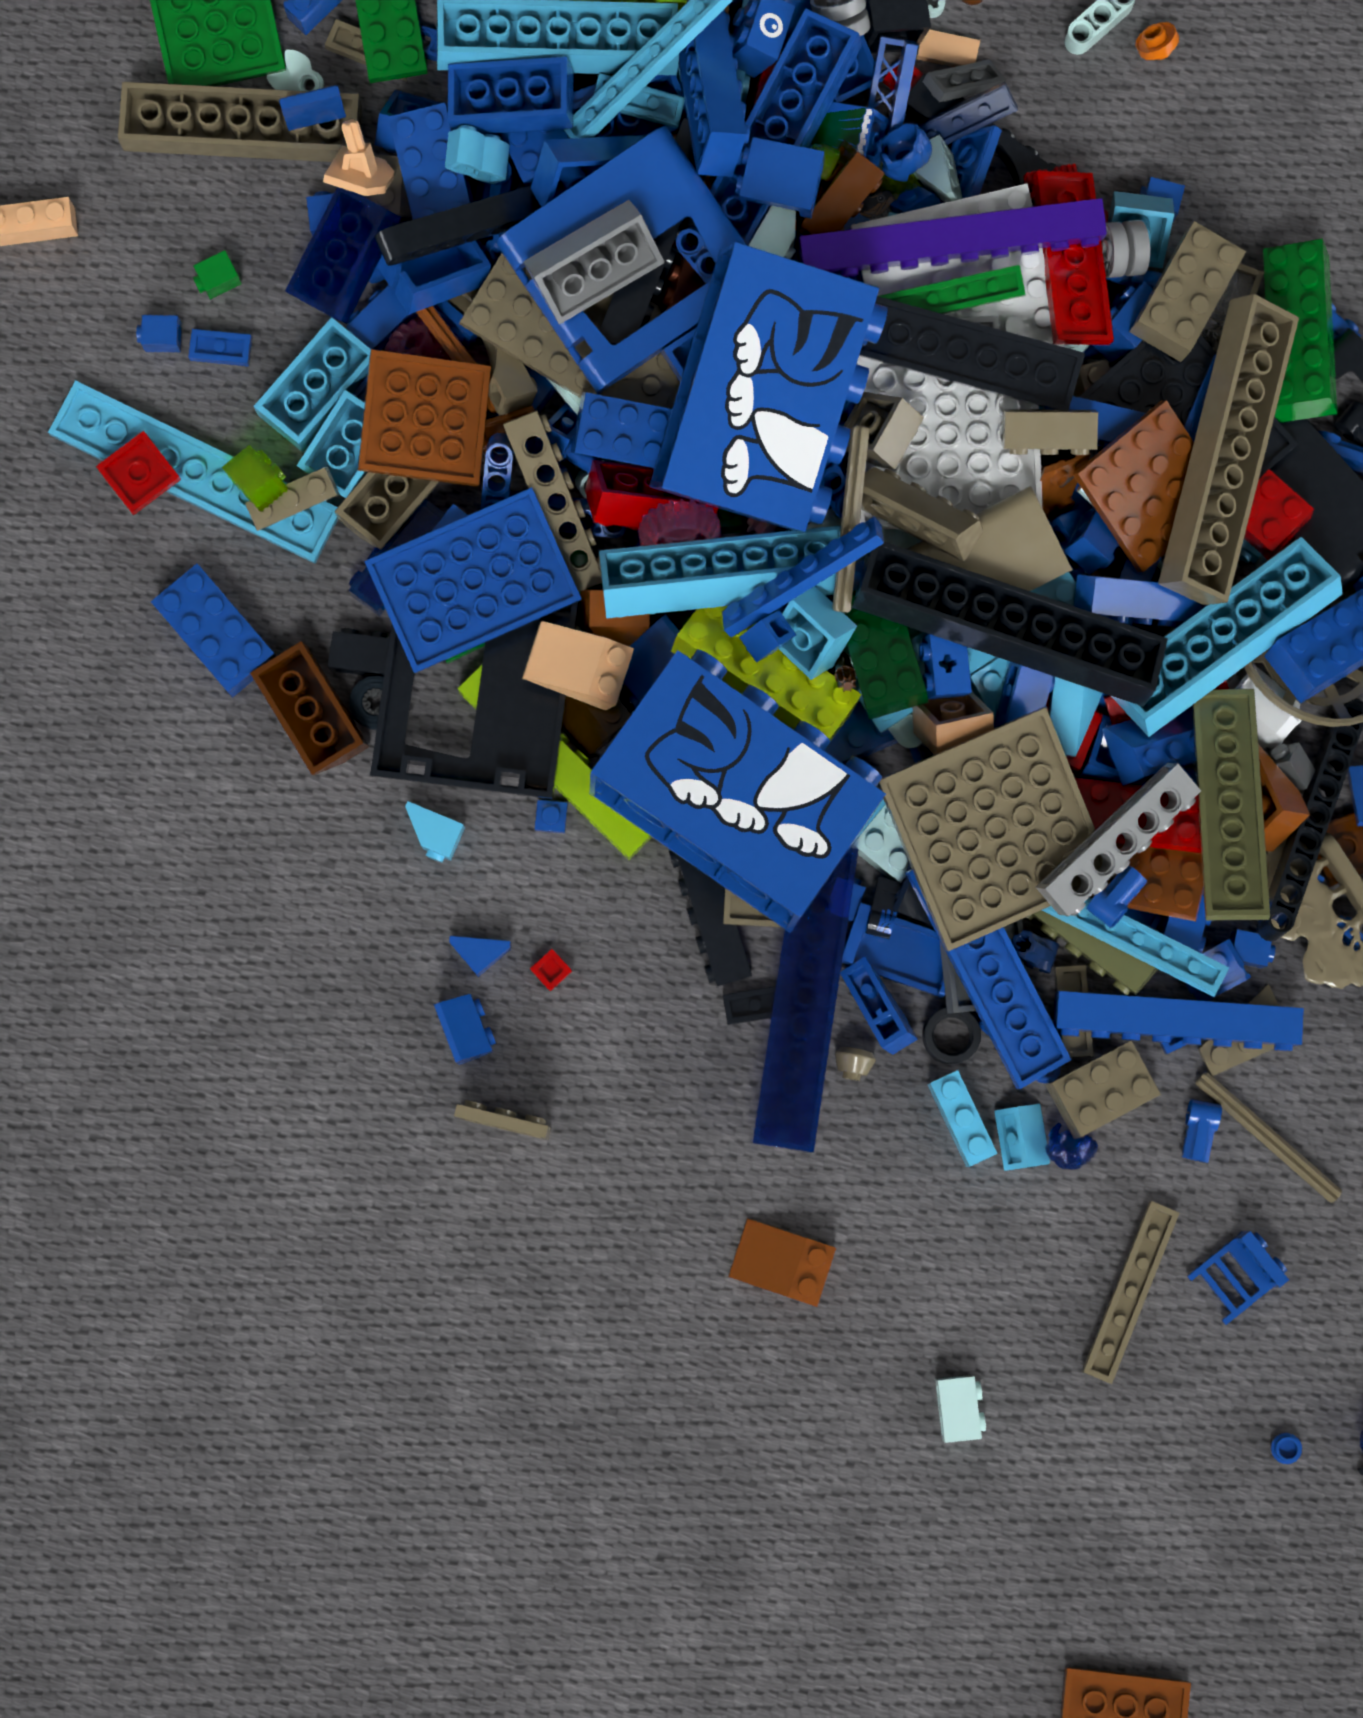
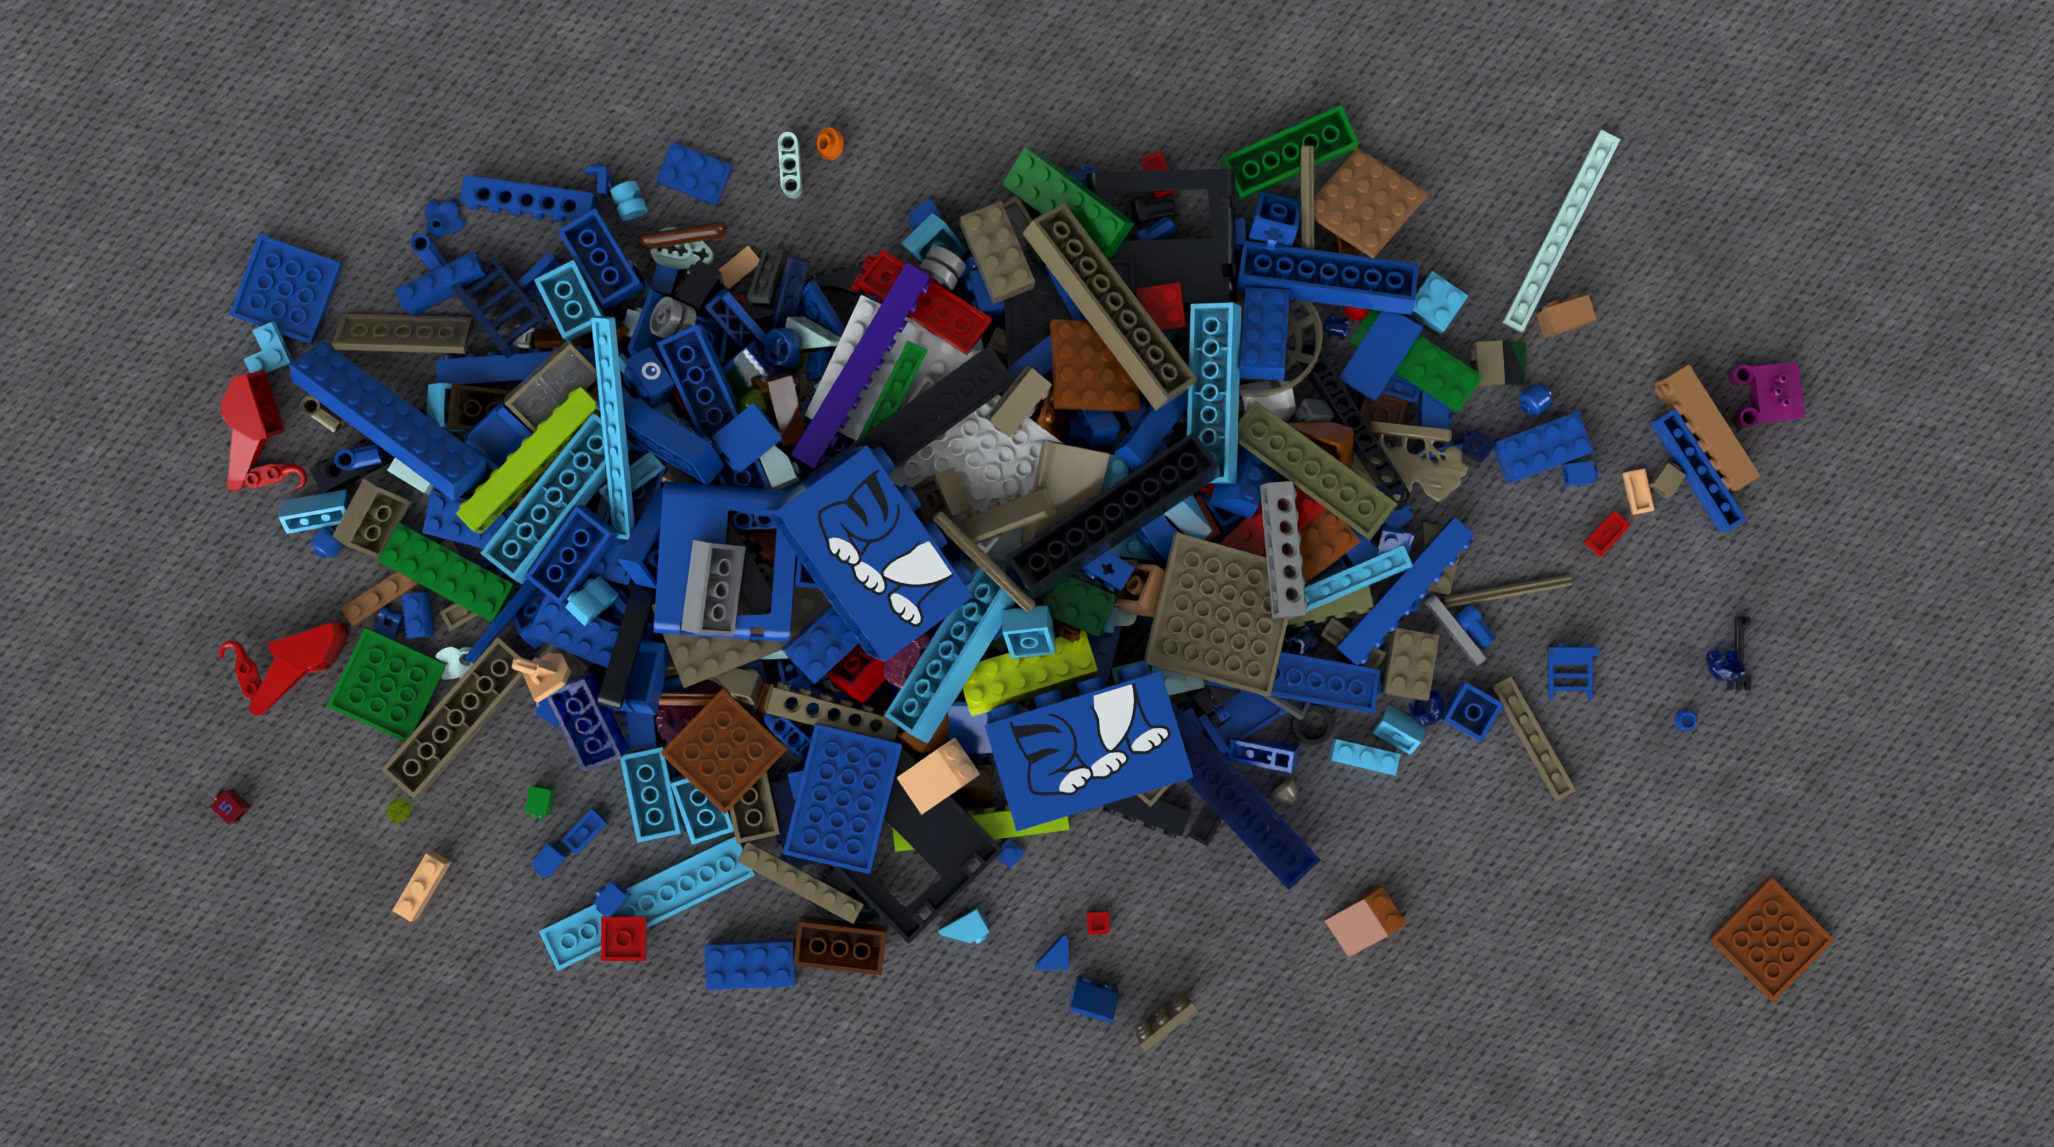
camera: 45 degrees left, 5 degrees up
(89, 139) = (398, 811): none -> clear neon green tile
(170, 426) = (611, 898): none -> blue brick
(255, 477) = (682, 874): clear neon green brick -> none
(300, 496) = (709, 861): dark tan plate -> none
(312, 107) = (486, 673): blue tile -> none
(345, 612) = (800, 882): none -> dark tan plate
(384, 88) = (500, 621): none -> blue axle
(767, 636) = (1012, 660): blue brick -> none
(803, 576) = (995, 616): blue plate -> none
(959, 1408) = (1522, 886): light aqua brick -> none
(1105, 1197) = (1471, 711): none -> blue brick
(1112, 902) = (1314, 579): blue piece -> none
(1179, 1111) = (1454, 630): none -> light grey beam

